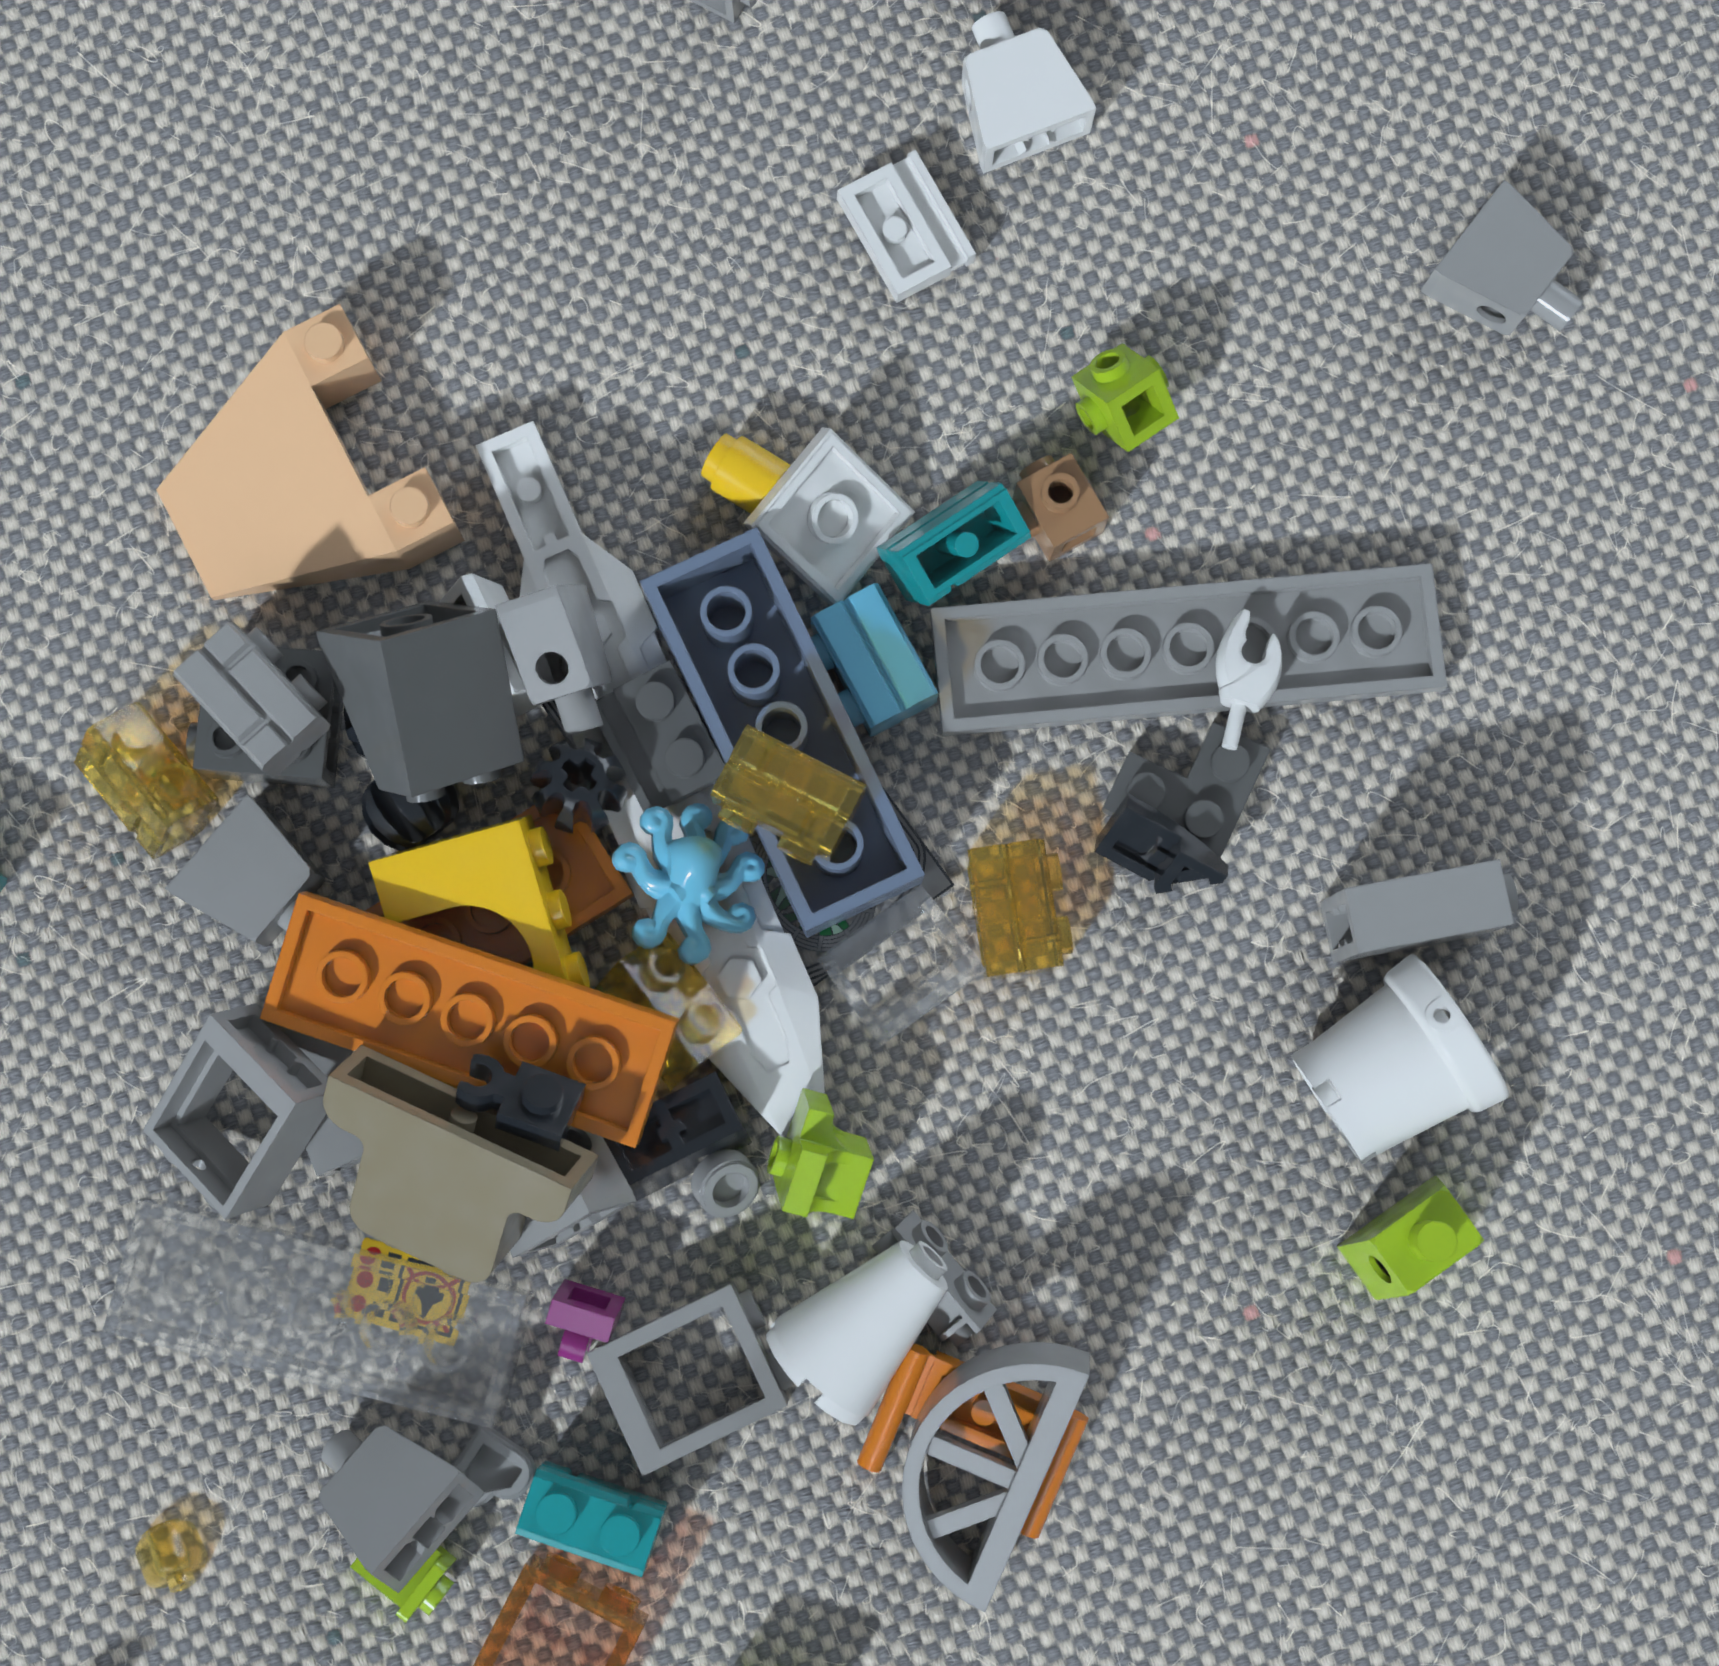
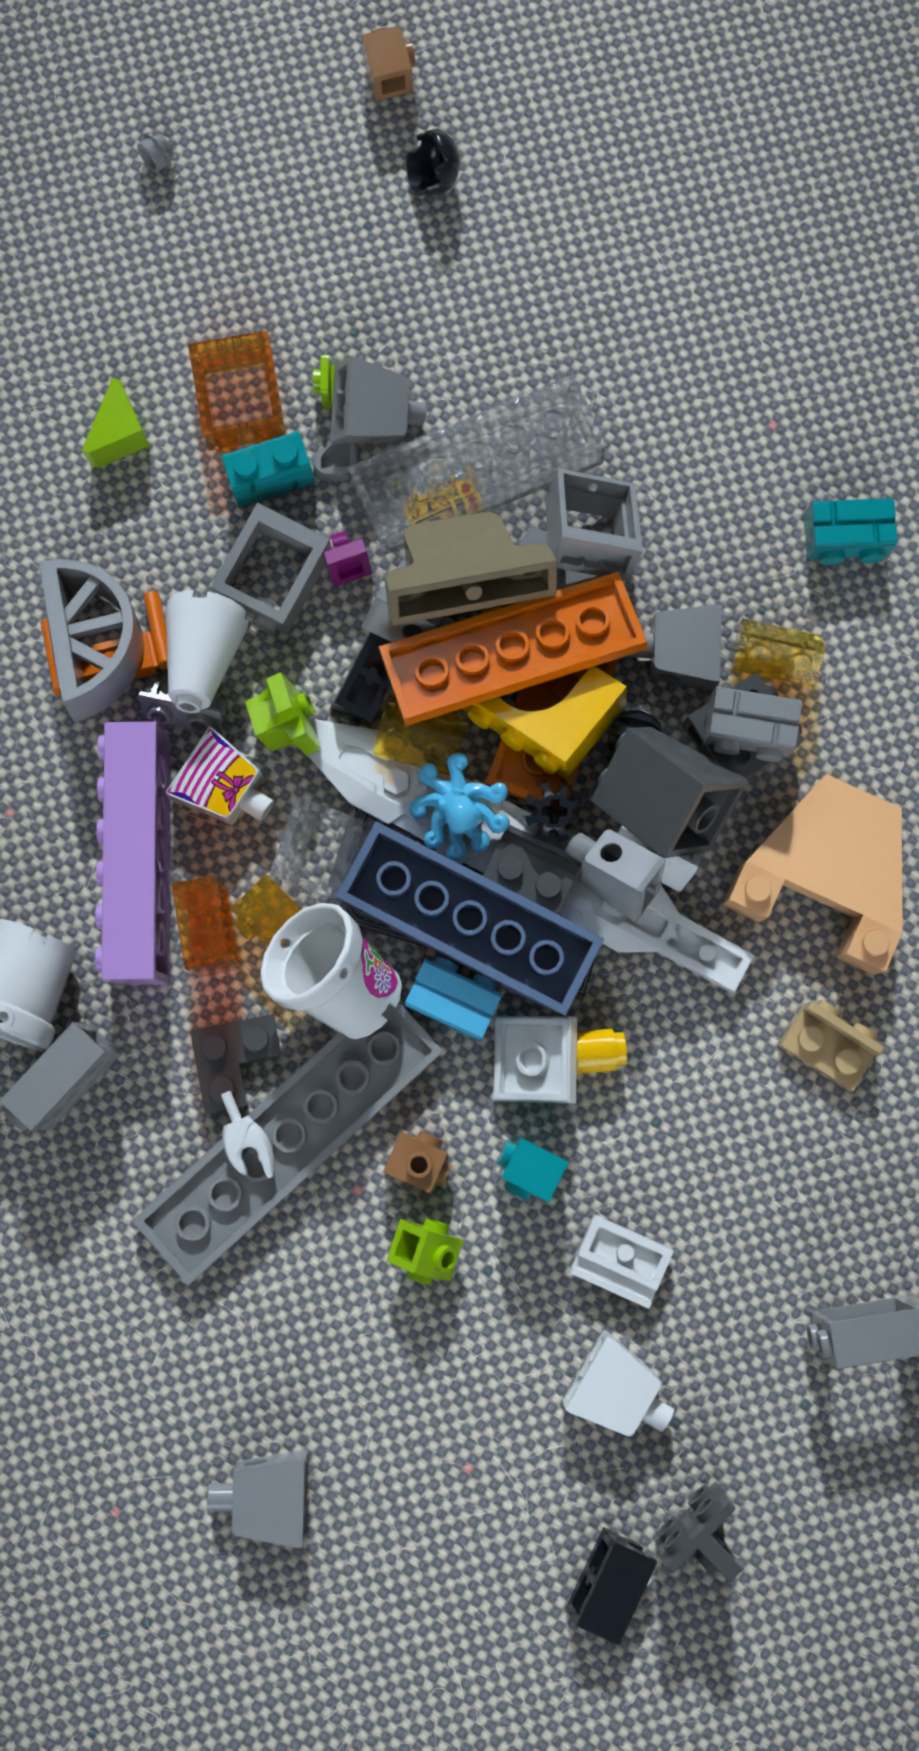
camera: 145 degrees right, 0 degrees up
(171, 1555) = (462, 311): clear yellow piece -> none
(472, 284) = (831, 1044): none -> tan bracket
(529, 1105) = (444, 624): black plate -> none
(725, 1183) = (325, 675): light grey tile -> none
(786, 795) = (436, 877): clear yellow brick -> none
(932, 392) = (530, 1169): none -> teal brick
(954, 542) = (457, 1095): teal brick -> none
(958, 1142) = (220, 782): none -> torso
(1000, 789) = (329, 971): none -> white piece
(1110, 958) = (201, 911): none -> clear orange window
(1134, 1119) = (135, 854): none -> lavender brick
(1157, 847) = (227, 1013): black slope -> none

